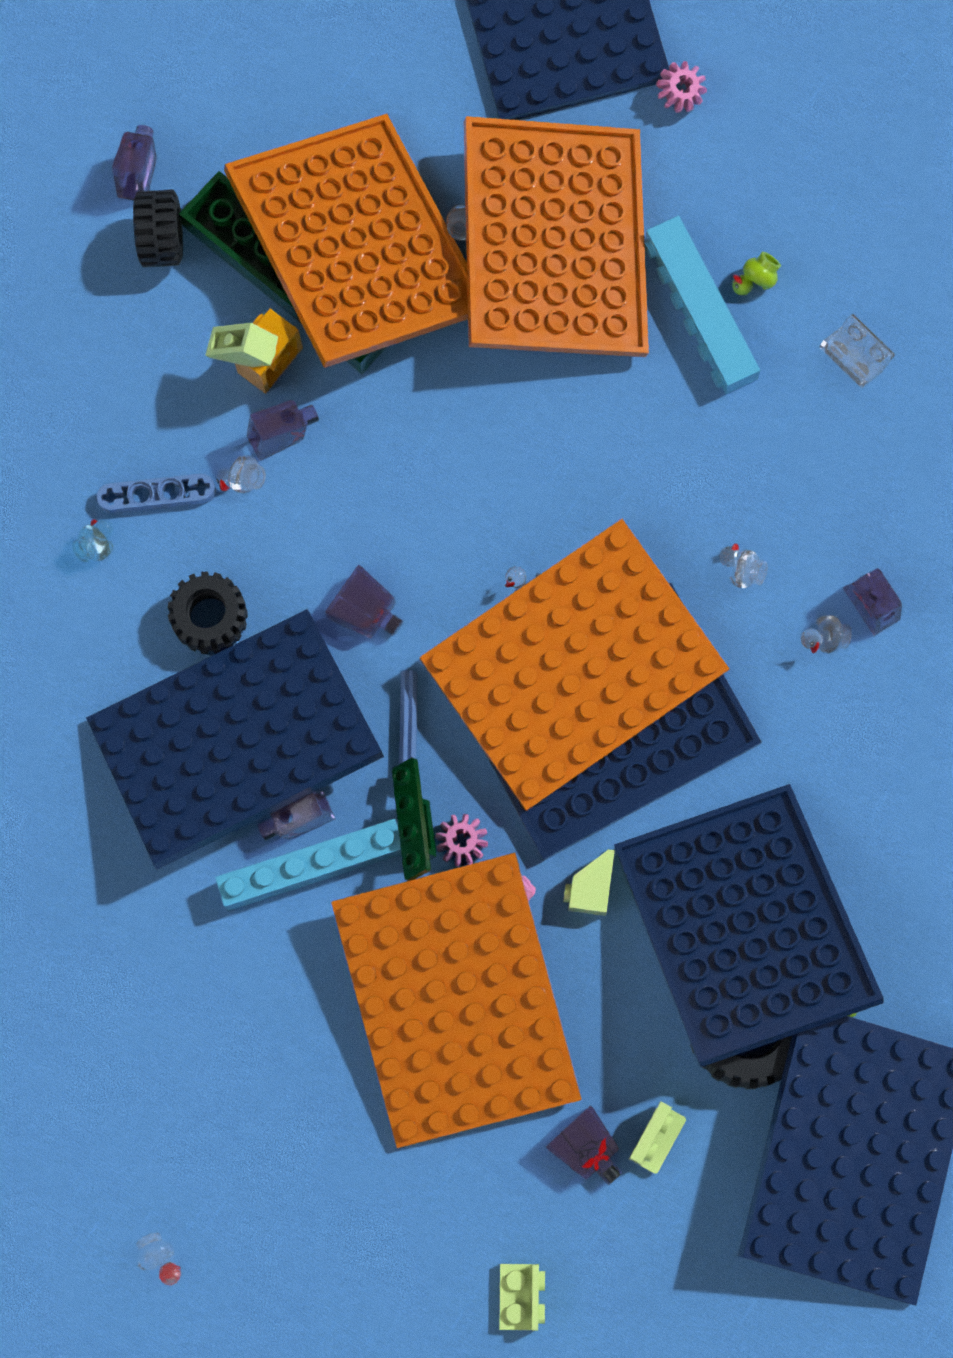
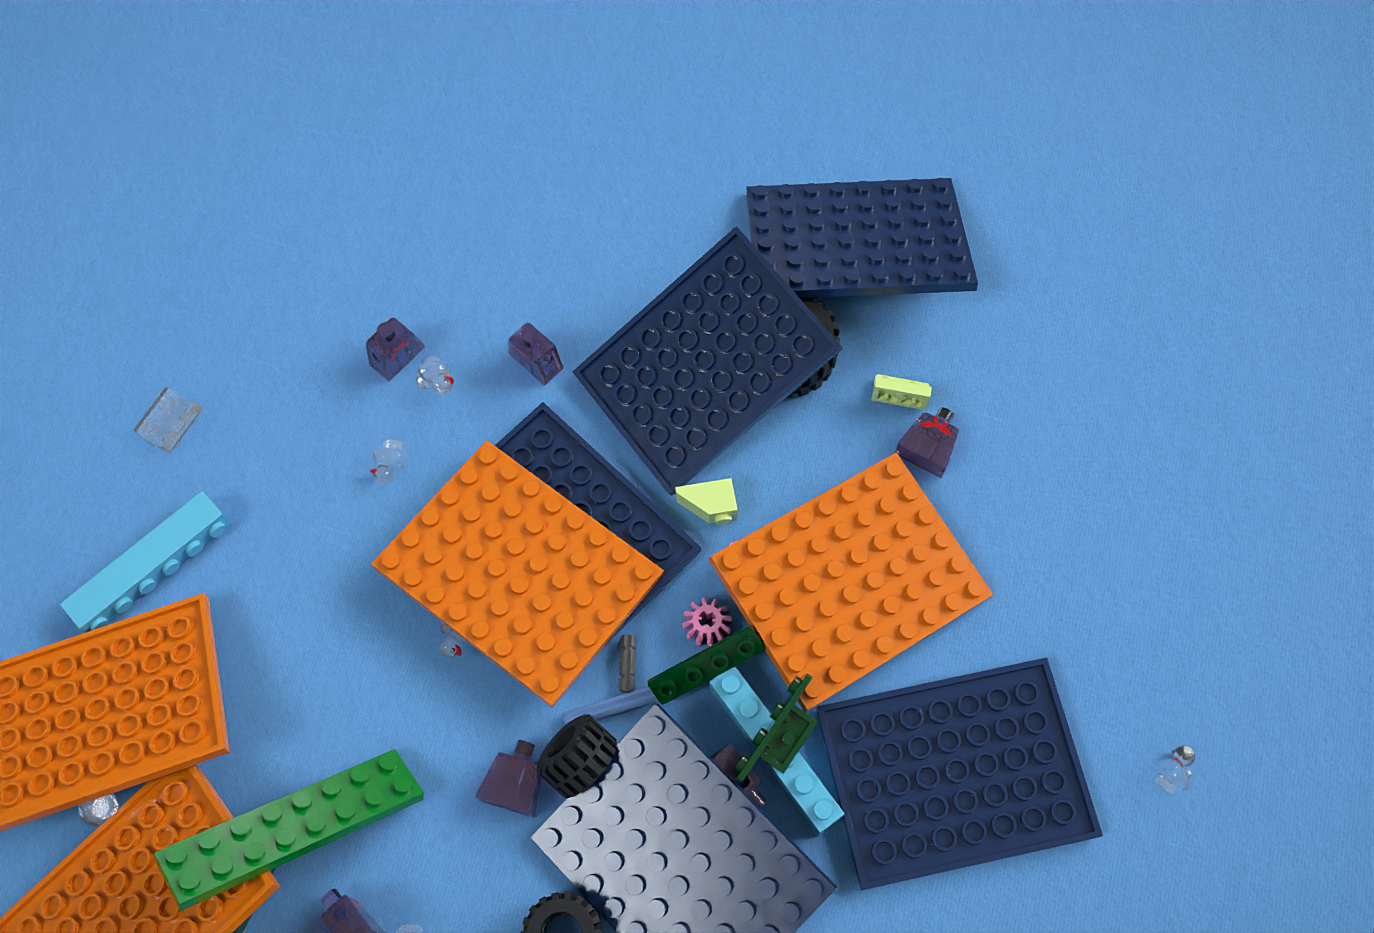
camera: 110 degrees left, 10 degrees down
(232, 1039) = (956, 773): none -> dark blue plate
(311, 867) = (783, 736): none -> dark green bracket
(363, 667) = (576, 756): none -> black tyre
(378, 390) = (286, 829): none -> green plate
(447, 749) = (627, 663): none -> dark grey axle
(520, 1297) = (1069, 457): yellowish green bracket -> none
(760, 270) = (104, 523): lime animal -> none
(820, 748) = (530, 349): none -> clear purple torso

